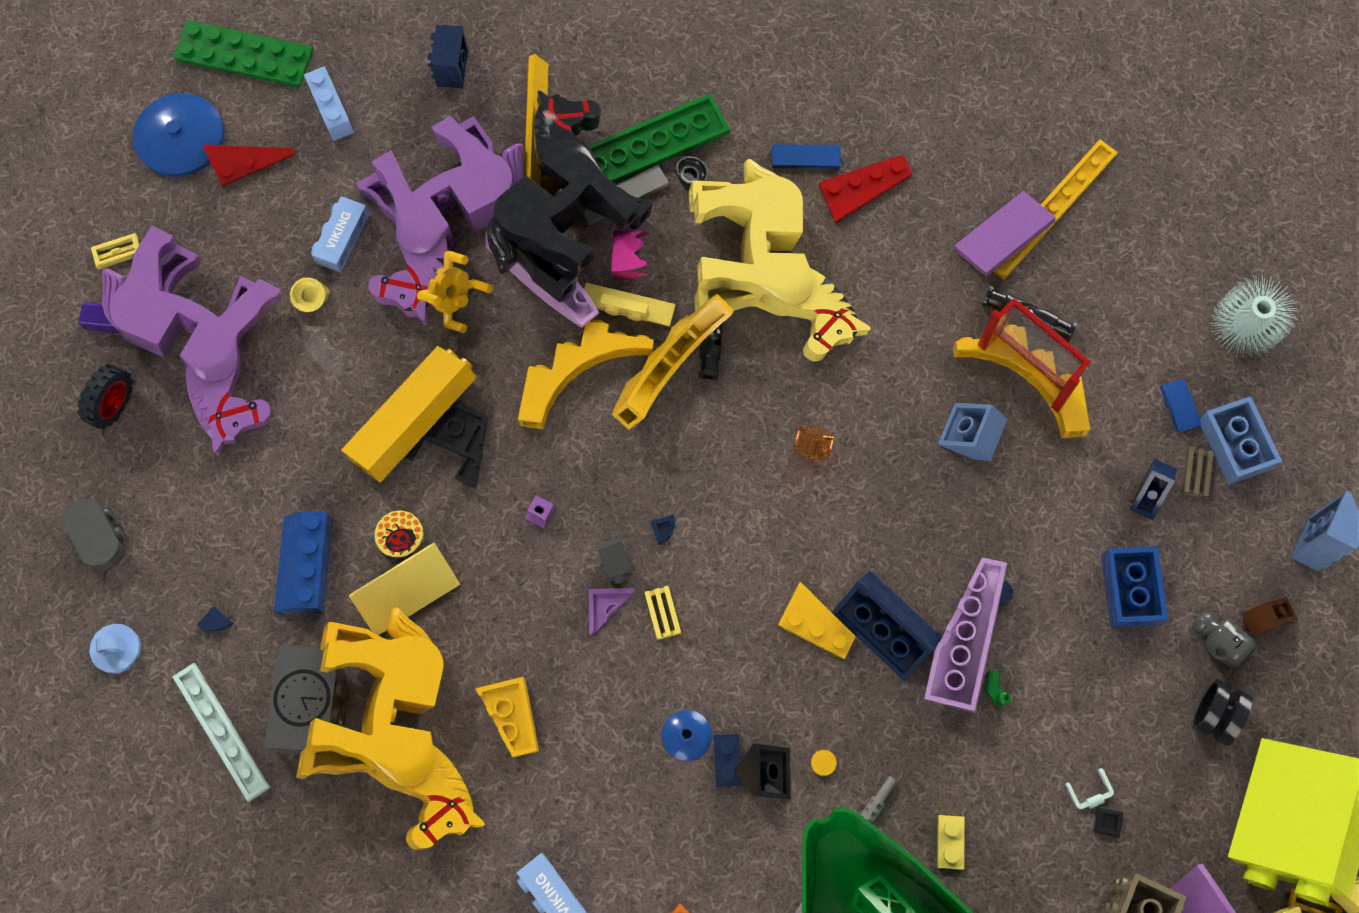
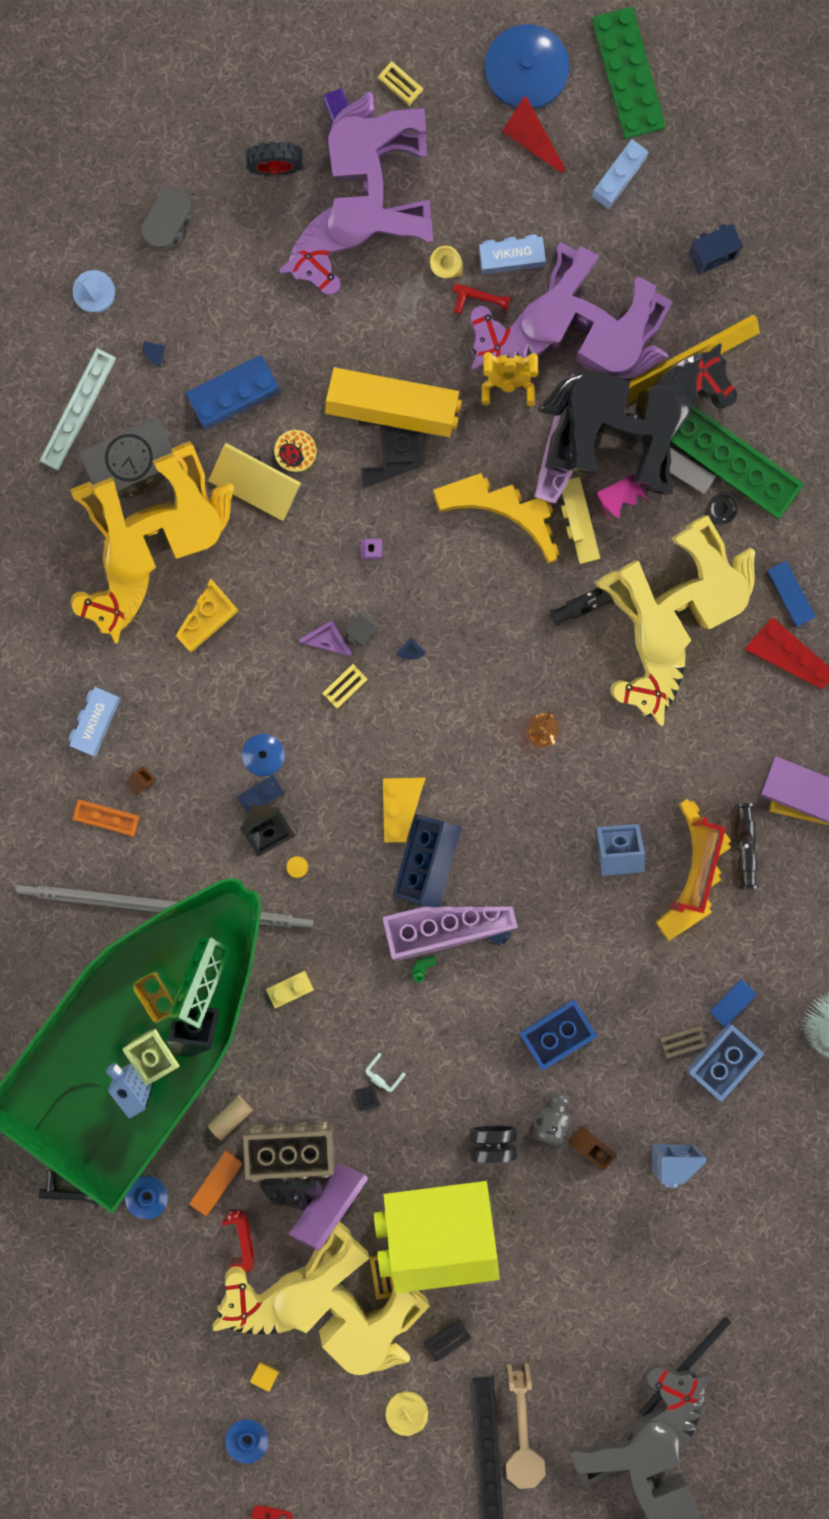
camera: 60 degrees right, 15 degrees up
(347, 294) = (464, 292): none -> red piece
(643, 881) = (140, 780): none -> reddish brown piece
(665, 360) = (542, 577): yellow arch -> none
(1154, 488) = (649, 1013): dark blue slope -> none

